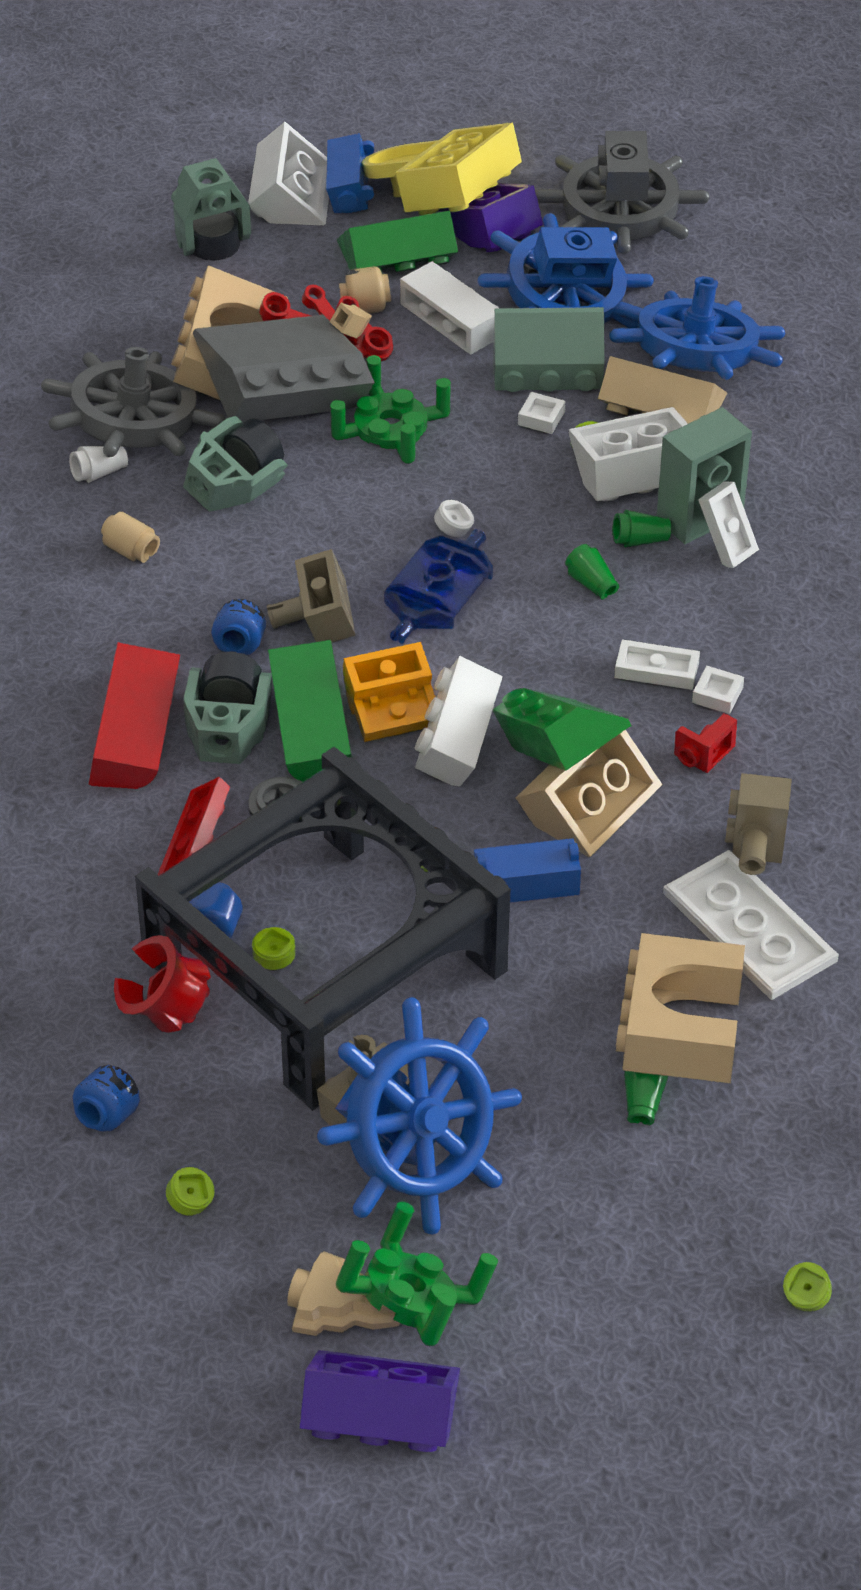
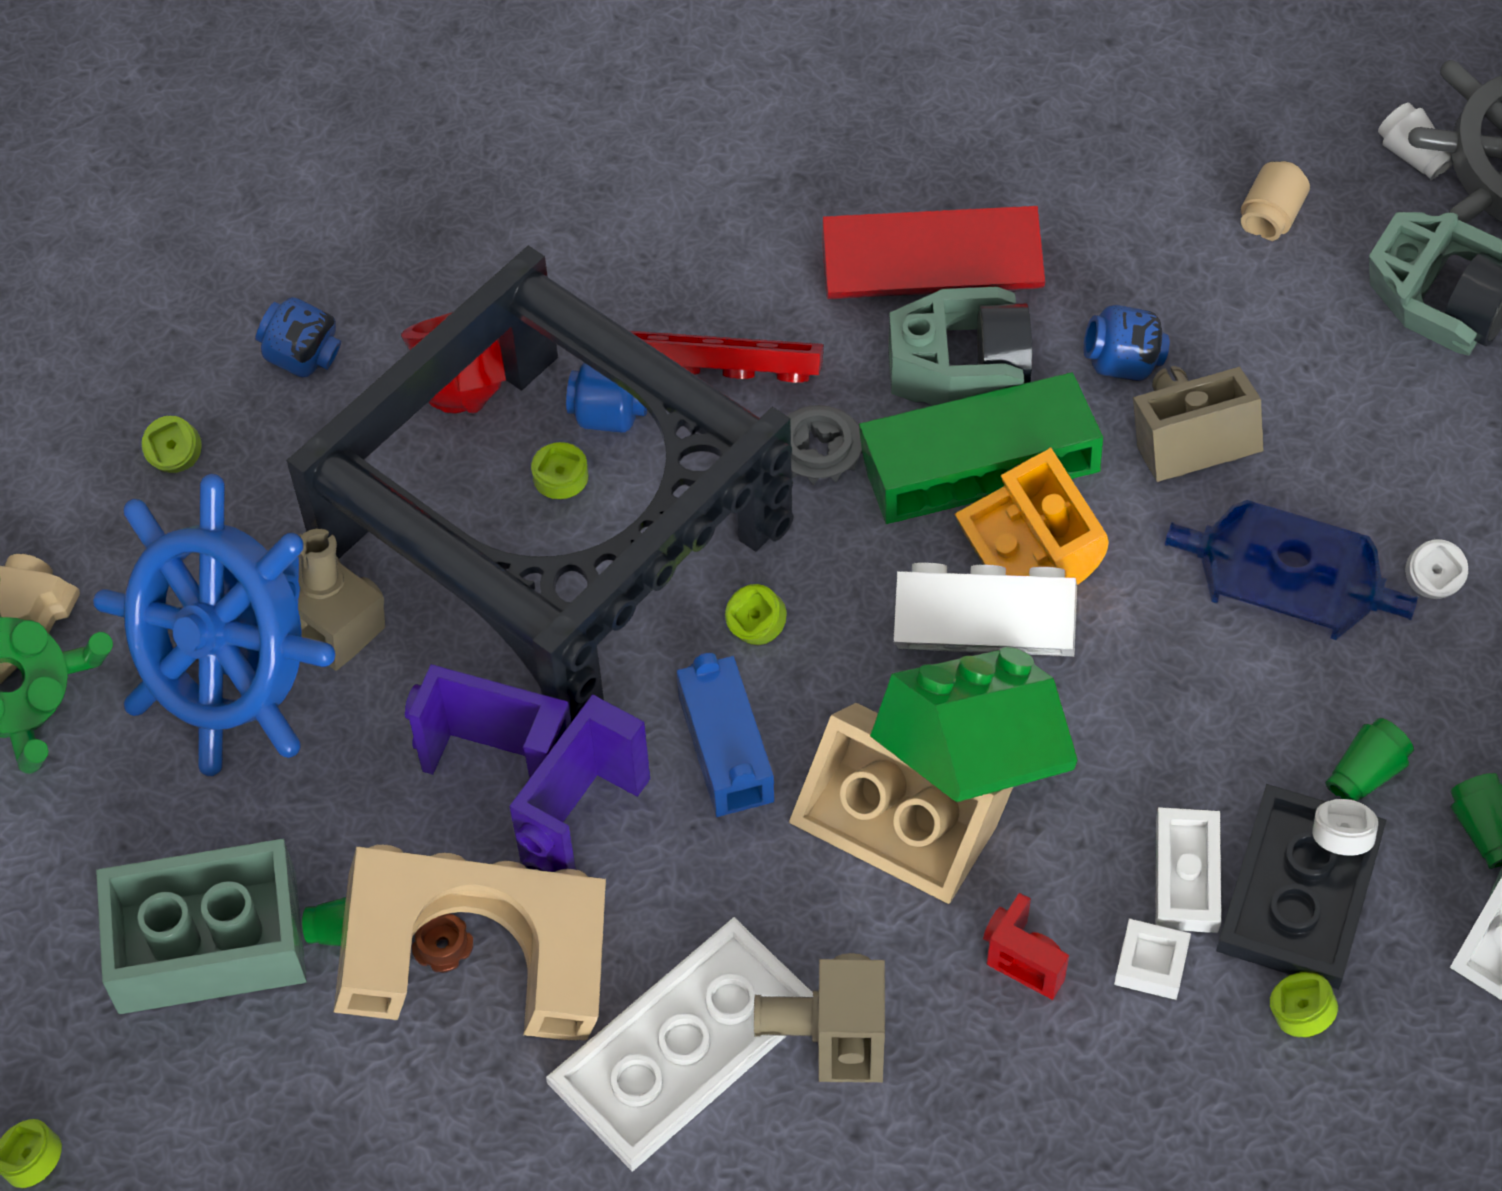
camera: 85 degrees right, 10 degrees up
(531, 956) = (482, 713): none -> dark purple panel
(567, 949) = (596, 743): none -> dark purple panel
(648, 1166) = (200, 926): none -> sand green brick
(649, 578) = (1345, 827): none -> white tile
(674, 615) = (1292, 897): none -> black plate
(755, 629) = (1303, 1004): none -> lime tile

